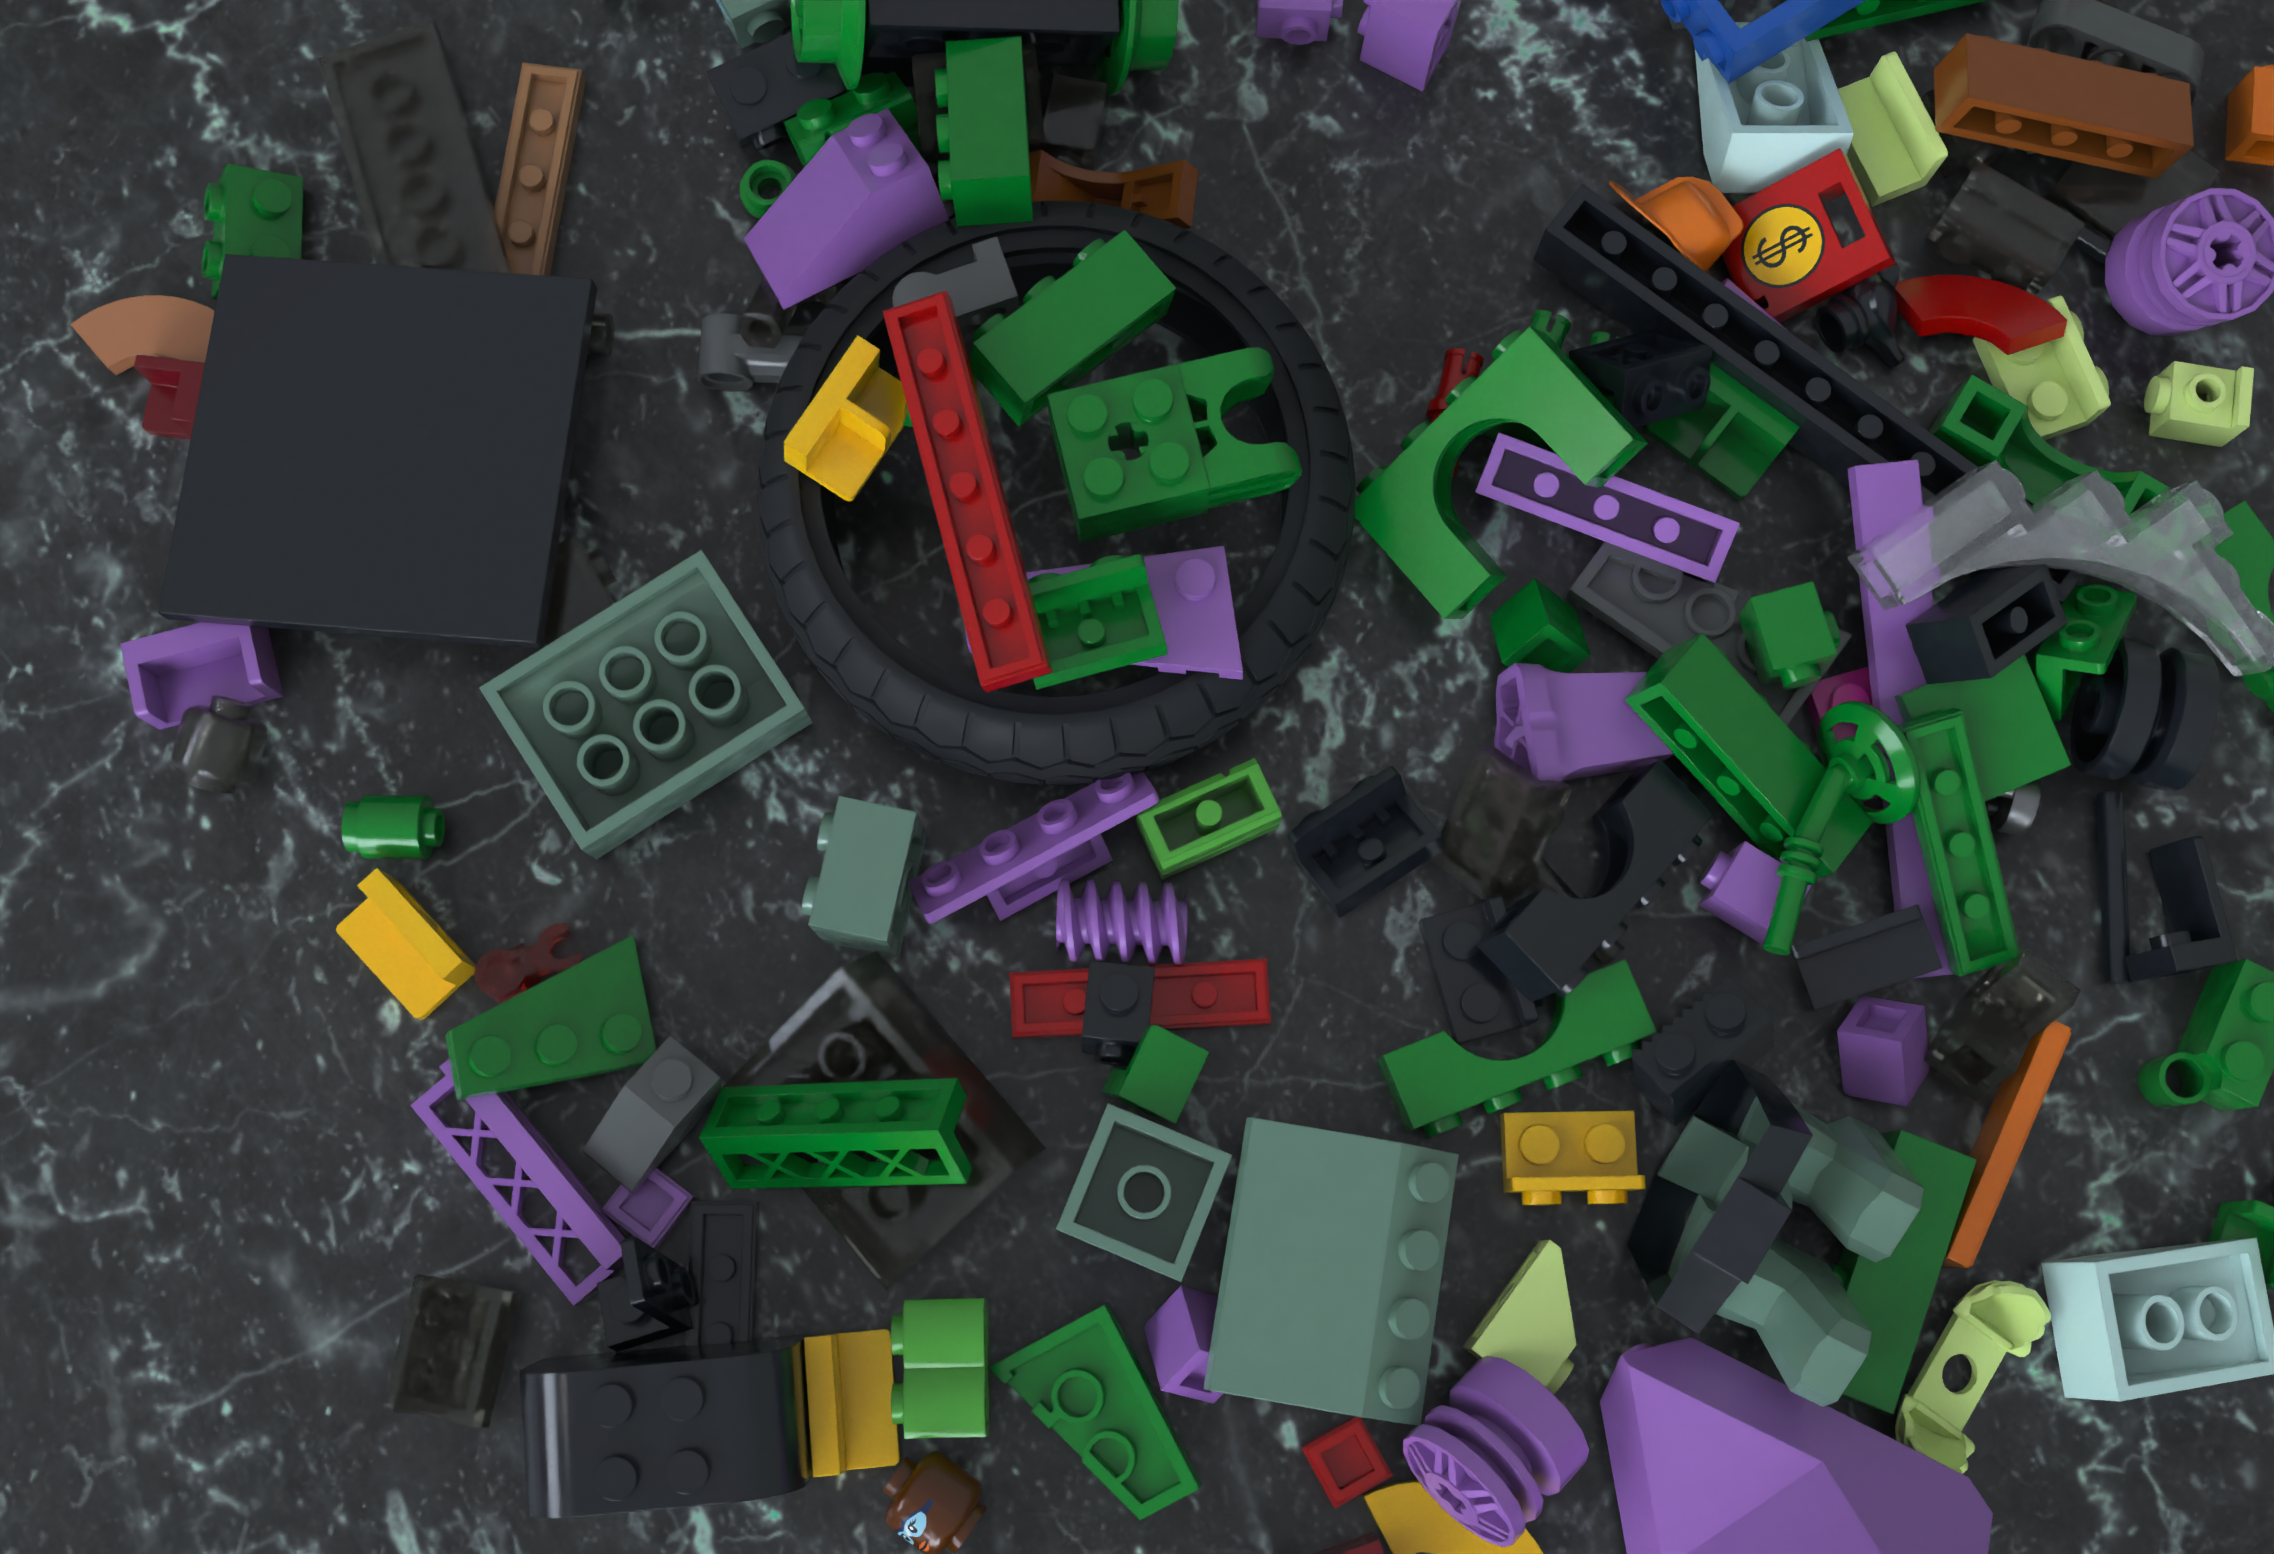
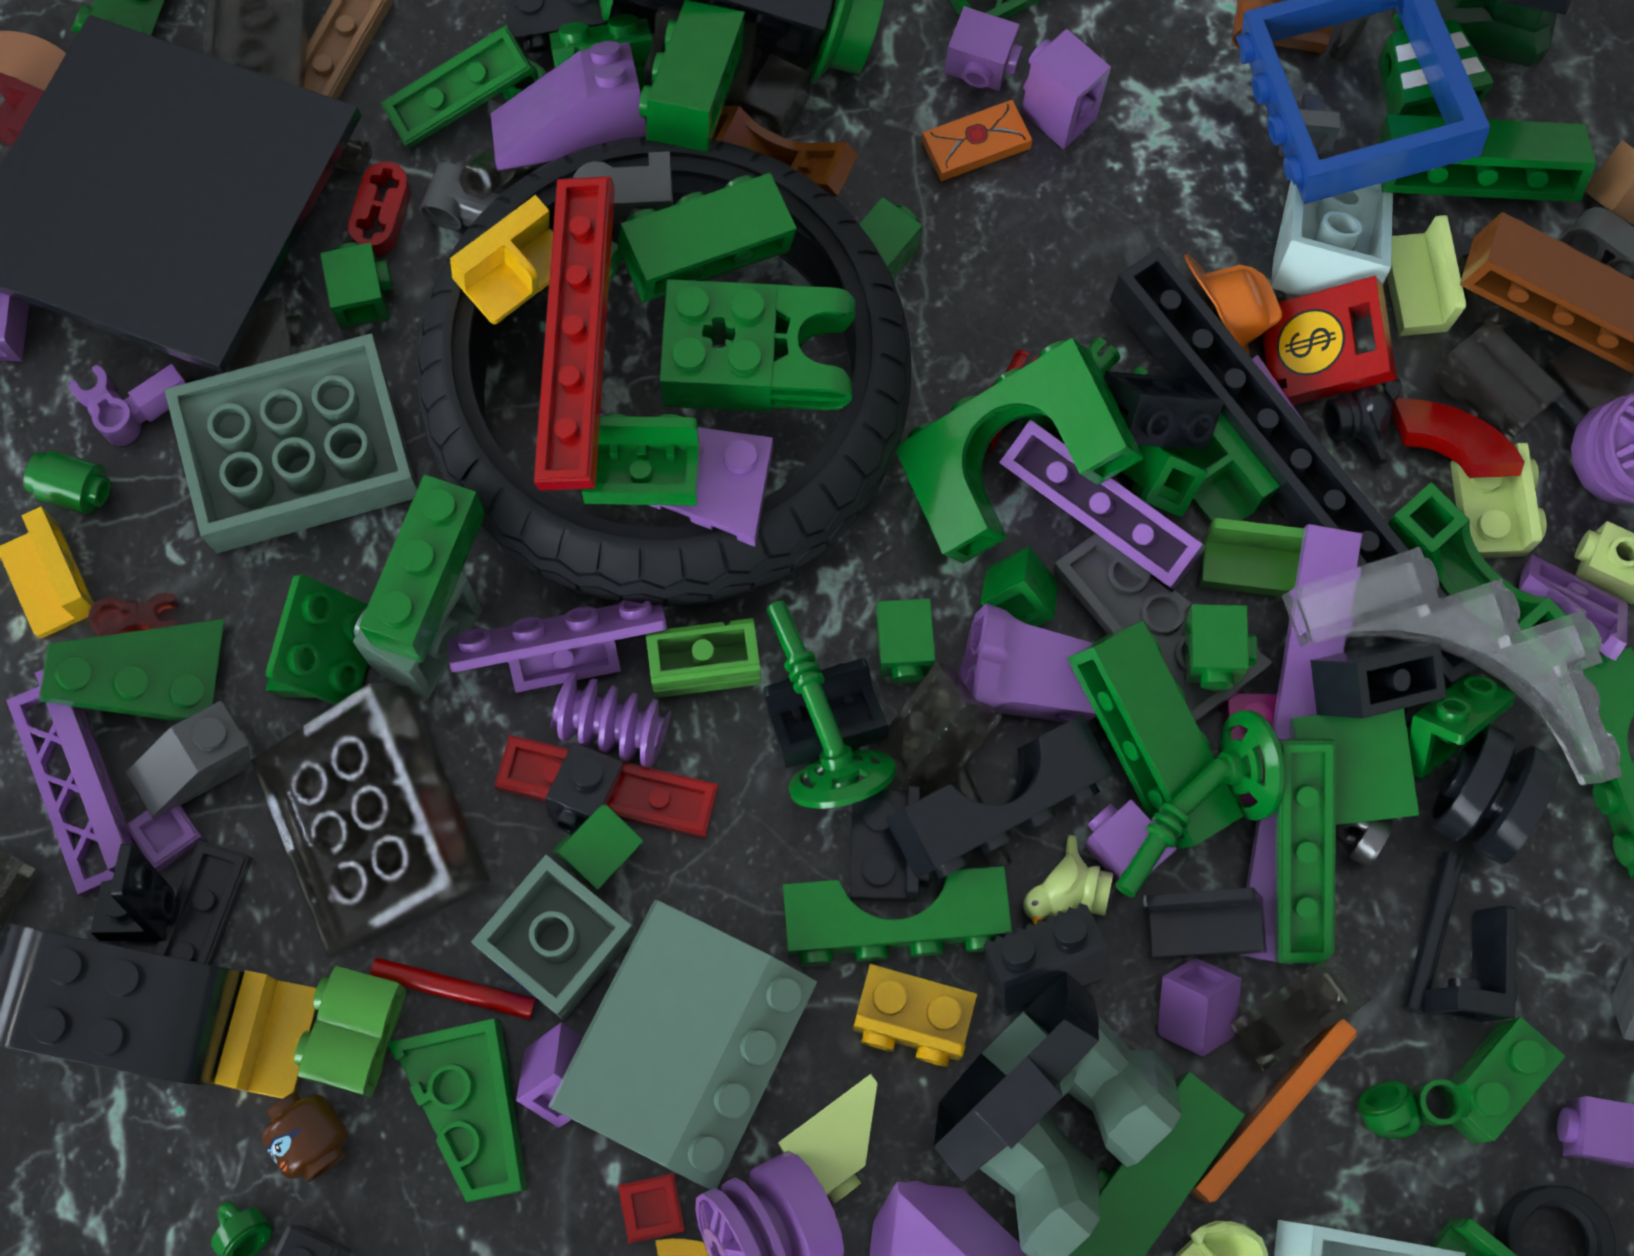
camera: 15 degrees right, 5 degrees down
(429, 732) = (121, 419): none -> medium lavender bar
(634, 391) = (389, 212): none -> red beam
(654, 490) = (356, 284): none -> green brick
(694, 217) = (457, 86): none -> green tile
(758, 933) = (316, 645): none -> green bracket
(830, 1123) = (323, 802): green fence -> none
(867, 817) = (423, 568): none -> green brick
(1041, 1282) = (455, 988): none -> red bar
(1263, 247) = (894, 233): none -> green brick
(1320, 109) = (976, 140): none -> orange tile
(1397, 890) = (841, 772): none -> green dish
(1427, 729) = (904, 639): none -> green brick
(1673, 457) = (1166, 478): none -> green brick
(1701, 960) = (1068, 886): none -> yellowish green animal
(1791, 518) = (1250, 557): none -> bright green panel
(2126, 1102) = (1389, 1110): none -> green tile
(2168, 461) = (1573, 595): none -> medium lavender wing

